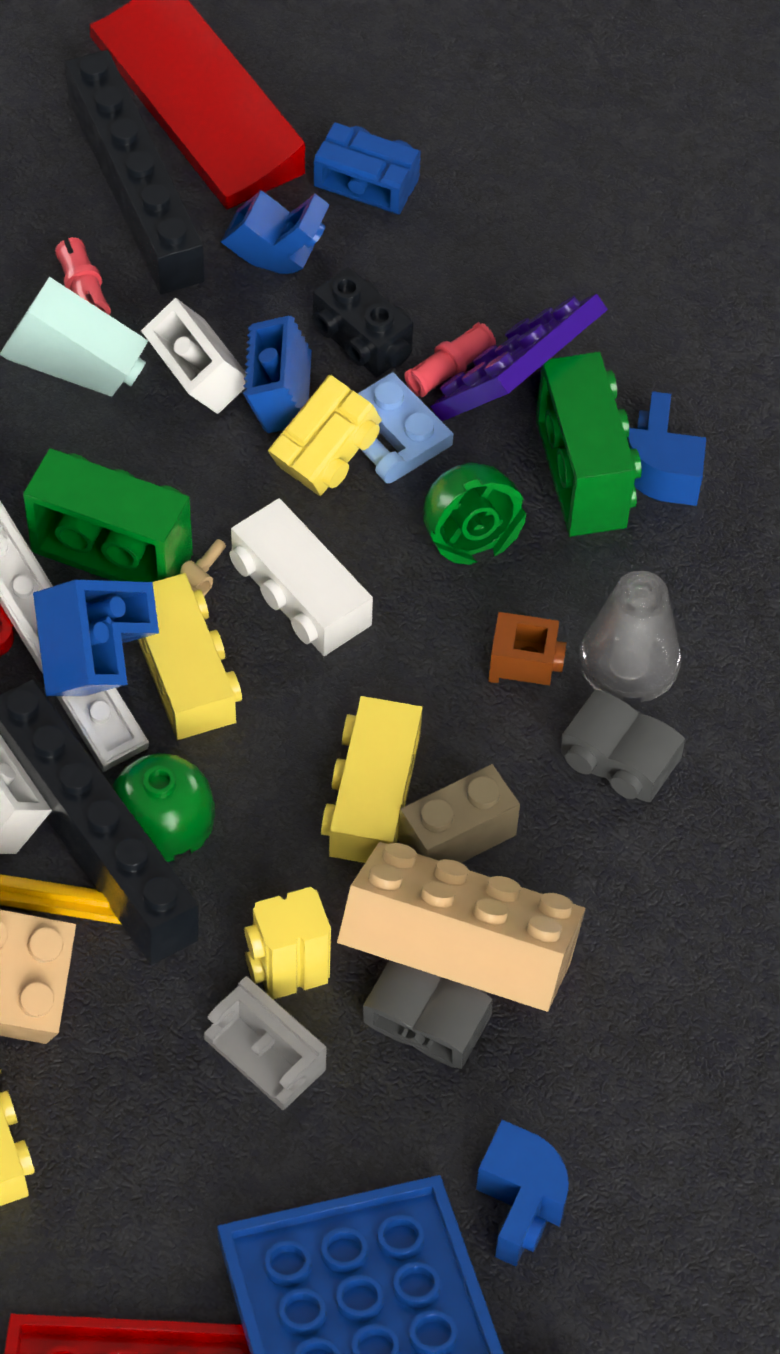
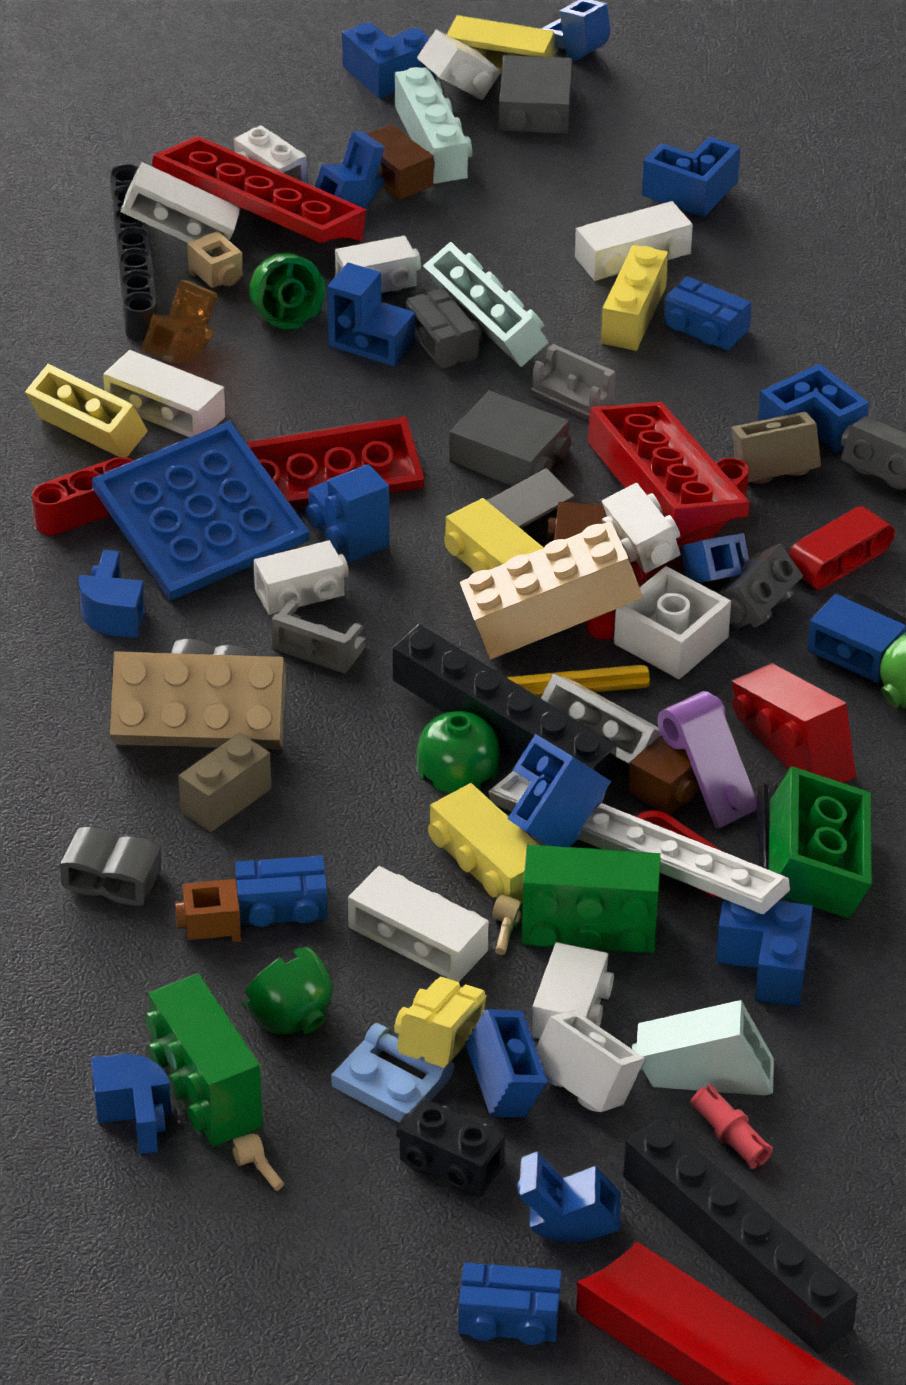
camera: 165 degrees right, 15 degrees down
(146, 1229) = (352, 512): none -> blue brick
(177, 444) = (572, 981): none -> white brick
(258, 1137) = (300, 576): none -> white brick
(289, 943) = (320, 666): light yellow brick -> none
(372, 778) = (302, 798): light yellow brick -> none
(437, 658) = (281, 890): none -> blue brick
(449, 359) = (357, 1139): coral pin -> none
(527, 349) = (286, 1099): dark purple plate -> none
(633, 640) = (120, 928): clear cone -> none

